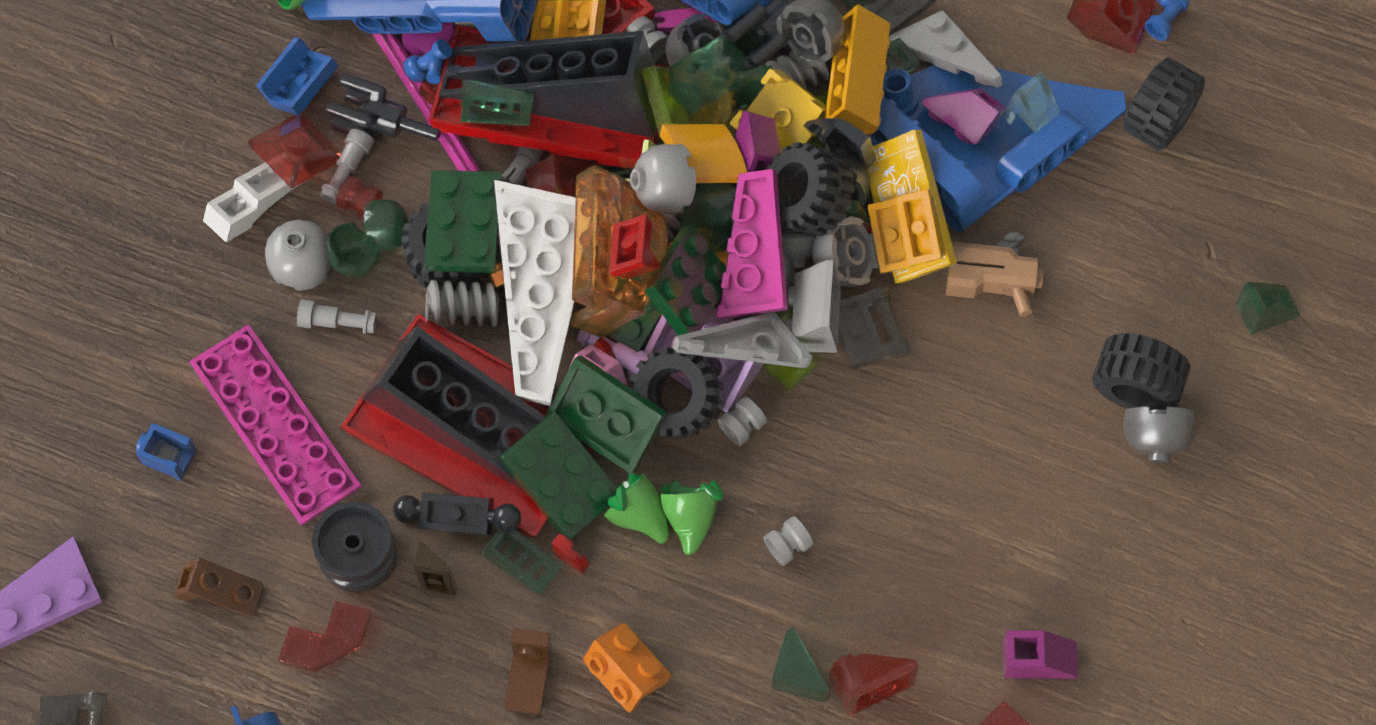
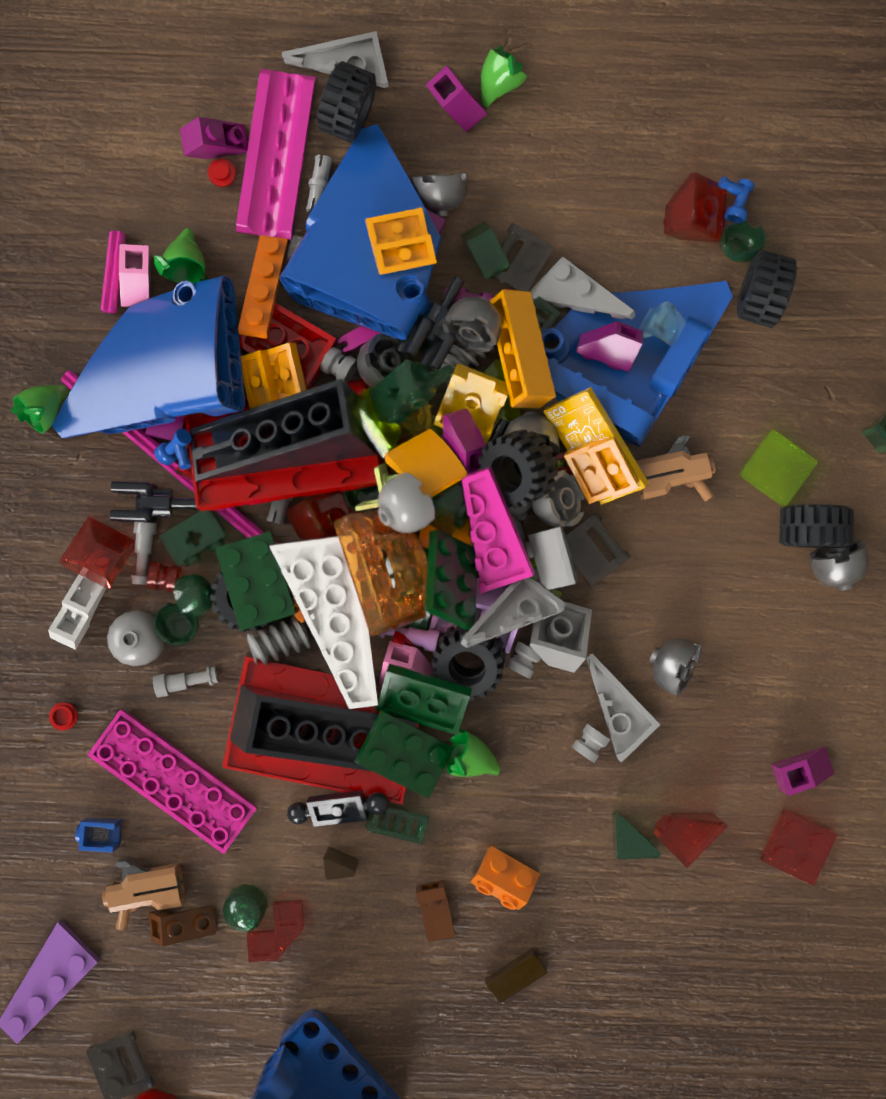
camera: 20 degrees left, 20 degrees up
(180, 312) = (63, 716): none -> red plate
(190, 529) = (143, 887): none -> medium nougat piece
(296, 77) = (73, 491): blue bracket -> none
(299, 596) = (245, 908): none -> clear green hair
(335, 543) = (265, 879): black wheel -> none
(397, 159) = (179, 537): none -> clear green brick
(485, 93) = (243, 478): clear green slope -> none
(563, 549) = (433, 808): red tile -> none
(631, 248) = (403, 582): red slope -> none
(691, 511) = (510, 744): bright green hat -> none
(794, 403) = (563, 637): none -> light grey slope
(839, 133) = (519, 416): black slope -> none
(841, 525) = (624, 716): none -> light grey wing
(922, 481) = (674, 664): none -> flat silver cylinder
(1120, 306) = (778, 468): none -> clear neon green tile
(1147, 51) = (742, 242): none -> clear green hair

